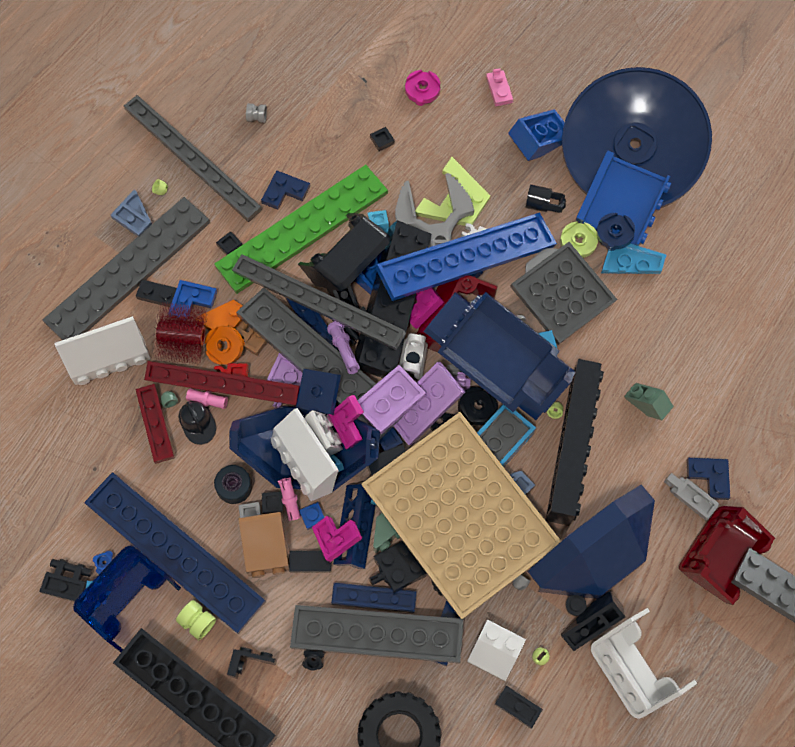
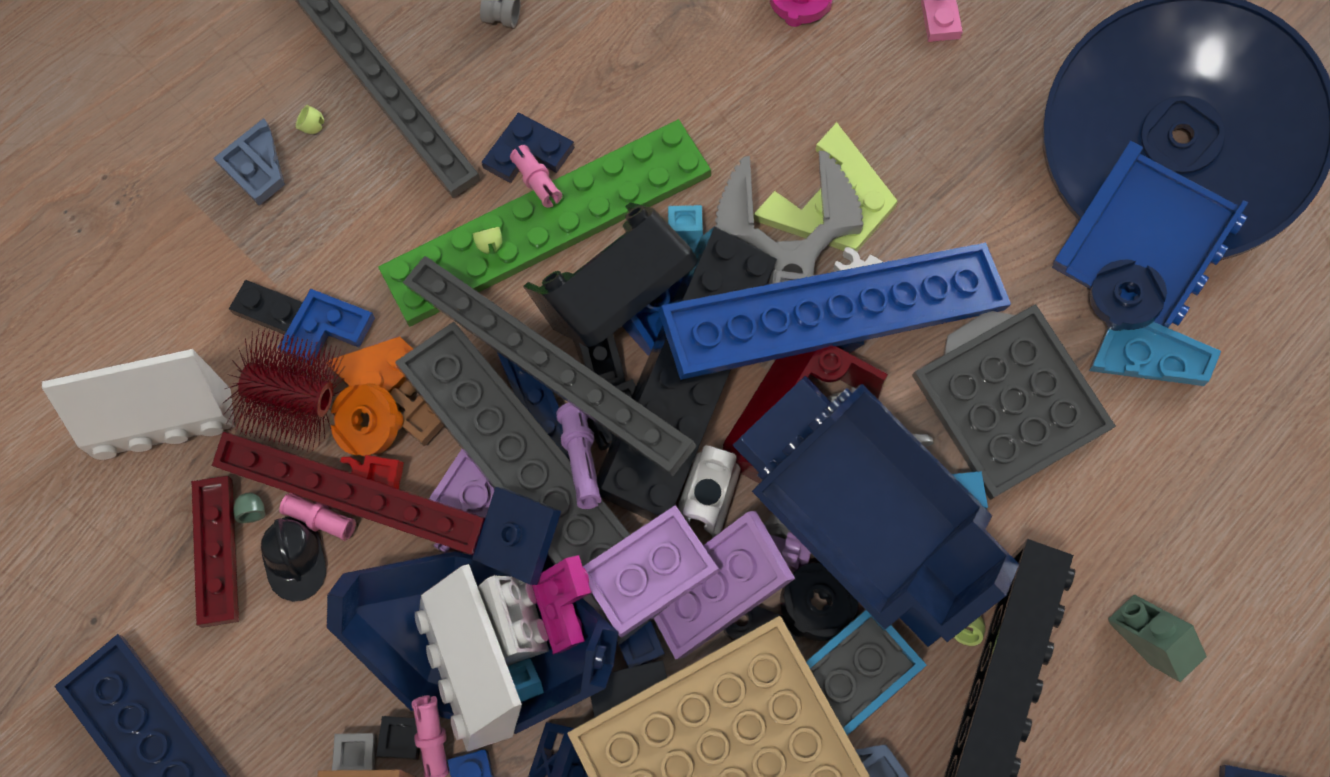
camera: 15 degrees right, 0 degrees up
(126, 270) = (221, 260): dark grey plate -> none
(228, 243) = (411, 232): black tile -> none
(238, 489) = (345, 697): black wheel -> none
(274, 241) = (486, 237): none -> yellowish green hinge
(293, 204) = (536, 176): none -> bright pink pin
(382, 139) = (715, 77): black plate -> none
(427, 304) = (751, 389): dark pink plate -> none
(538, 133) = (1001, 98): blue slope -> none
(539, 199) = (989, 216): black piece -> none
(580, 230) = (1057, 284): yellowish green plate -> none

